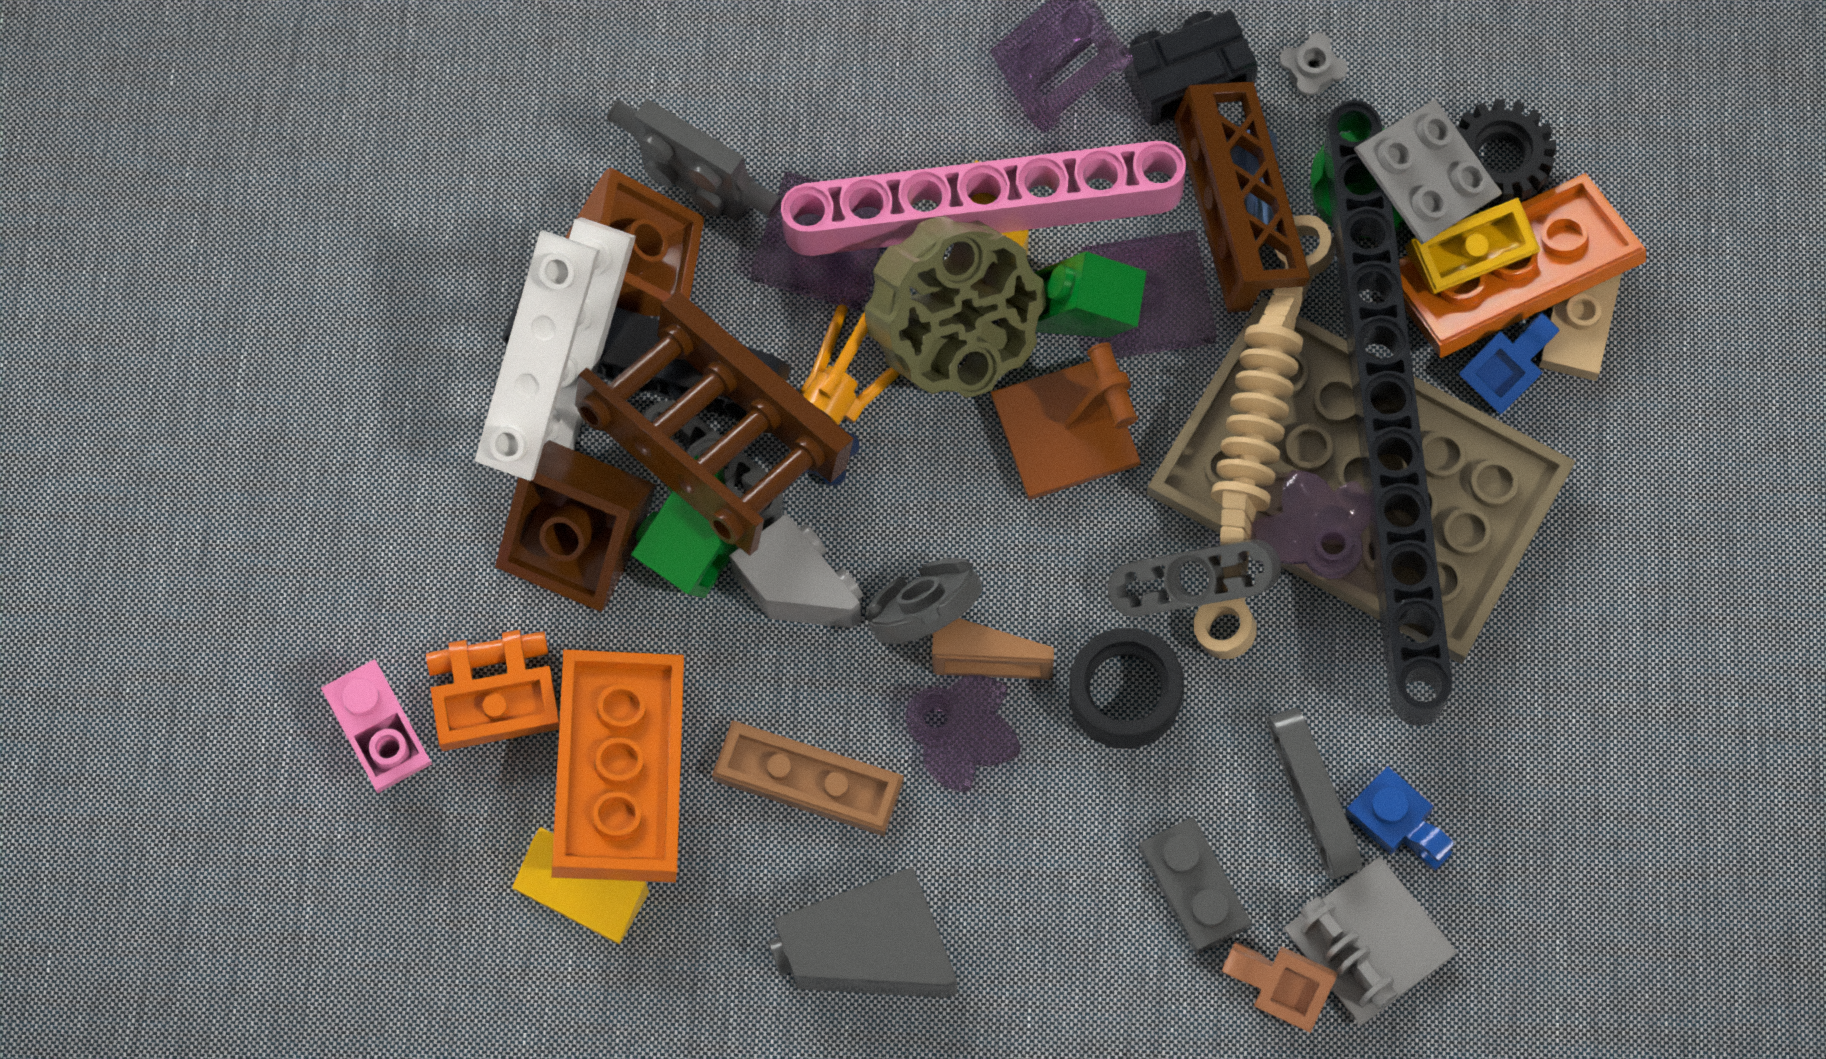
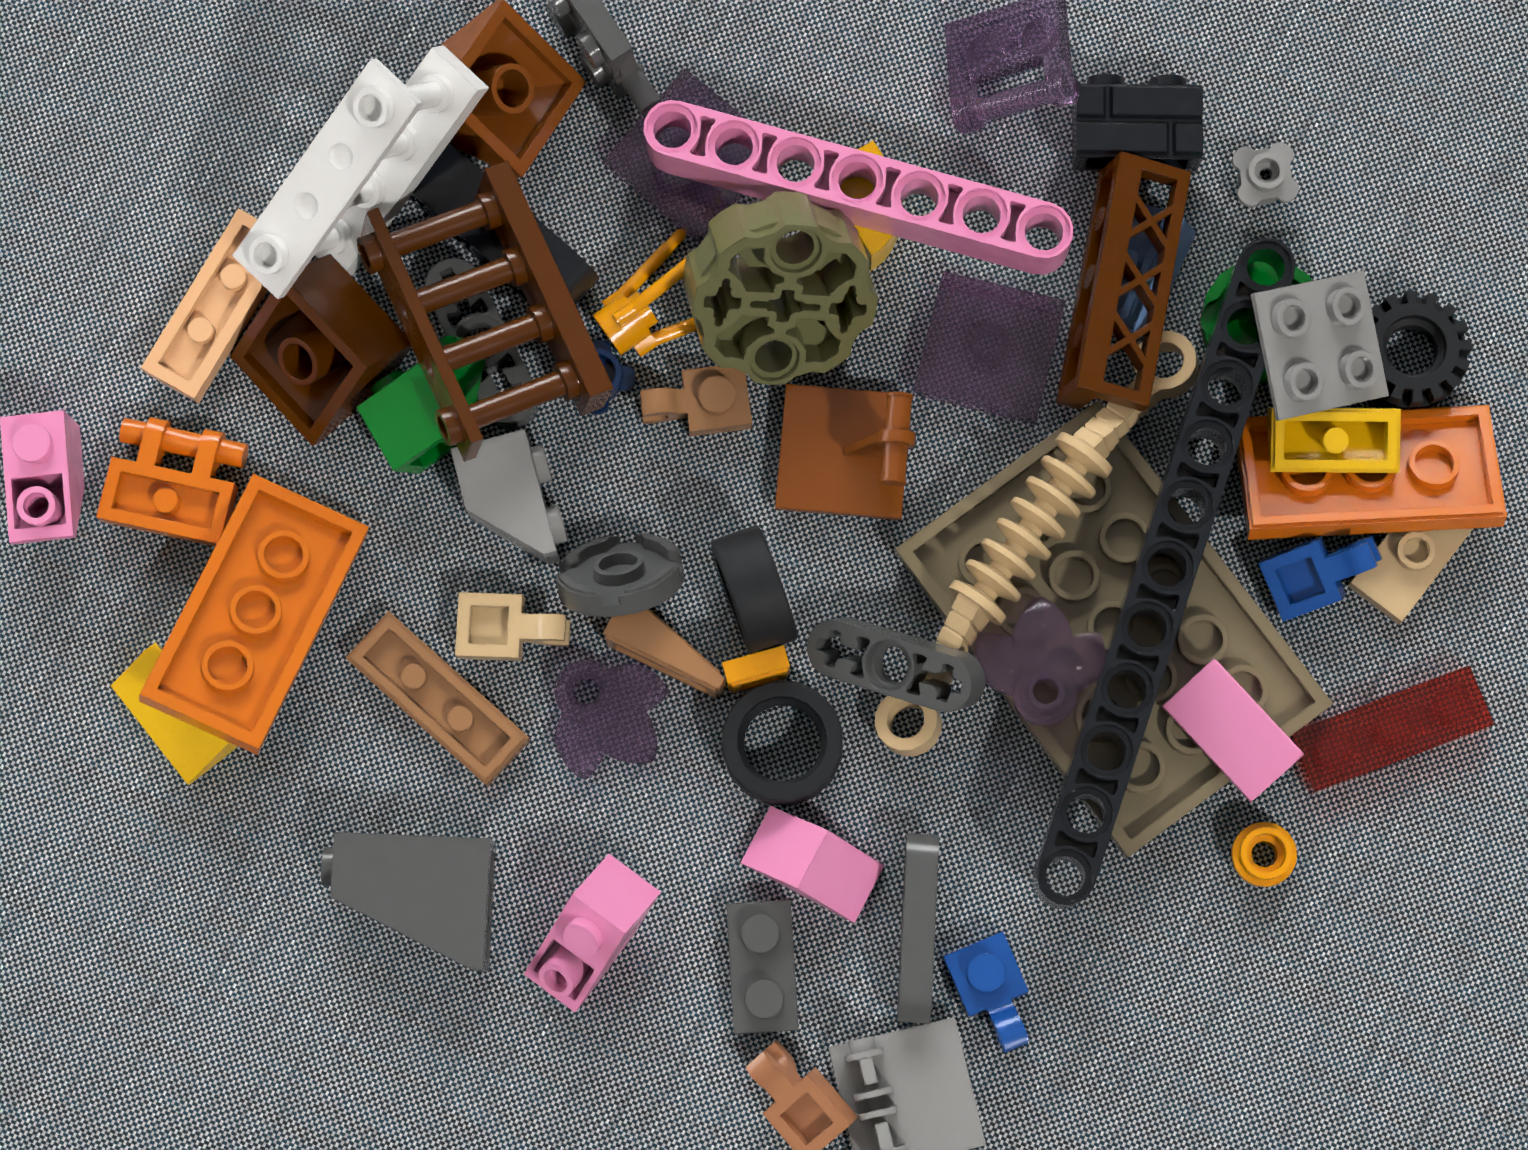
camera: 25 degrees right, 10 degrees up
(465, 532) = (208, 318): none -> light nougat plate
(834, 693) = (496, 626): none -> tan plate
(928, 432) = (710, 400): none -> medium nougat plate
(1034, 916) = (591, 932): none -> bright pink slope
(1045, 565) = (754, 589): none -> black tyre
(1075, 633) = (756, 669): none -> light orange tile
(1090, 296) = (922, 330): green slope -> none
(1197, 778) = (813, 863): none -> bright pink slope
(1504, 512) = (1232, 730): none -> bright pink slope
(1580, 595) = (1283, 848): none -> light orange plate
(1631, 467) = (1391, 729): none -> clear red plate

